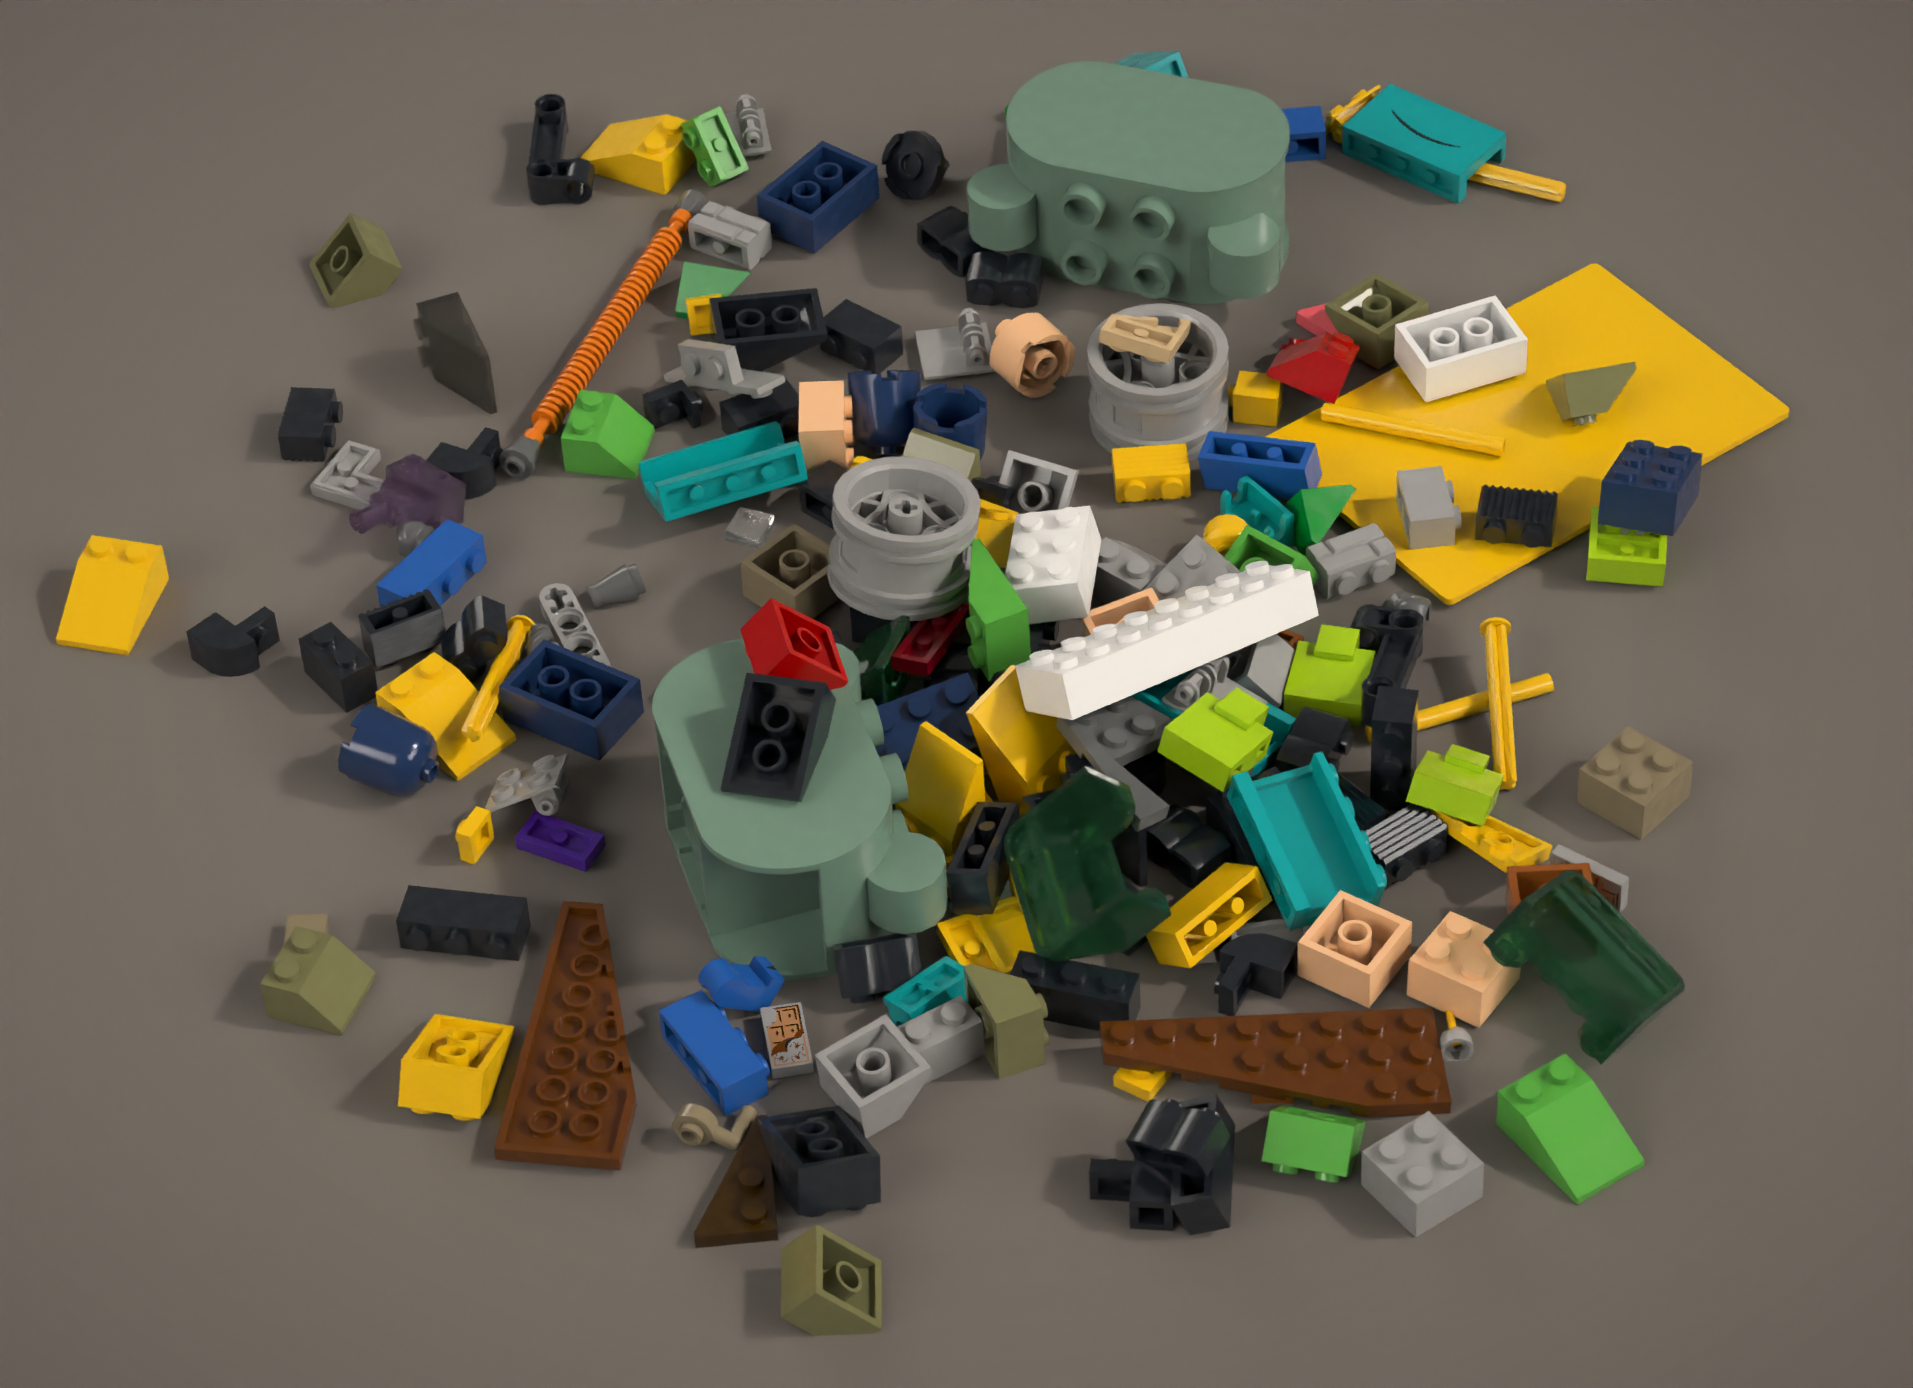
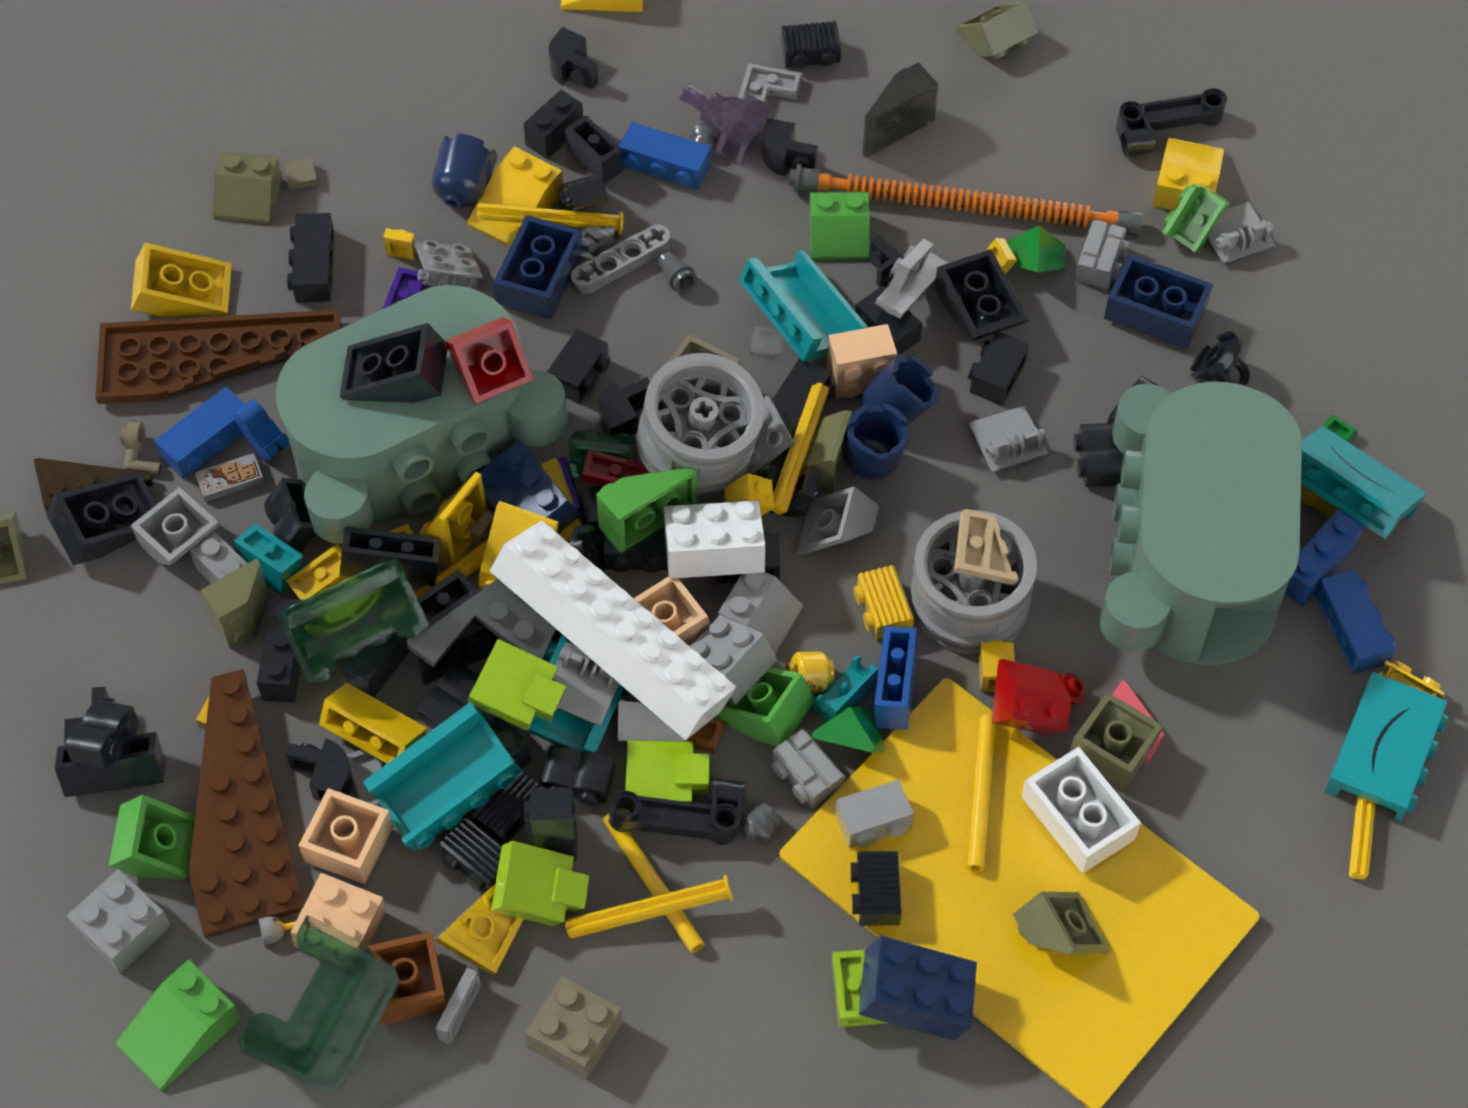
camera: 75 degrees right, 15 degrees up
(1031, 354) = (995, 484): light nougat brick -> none

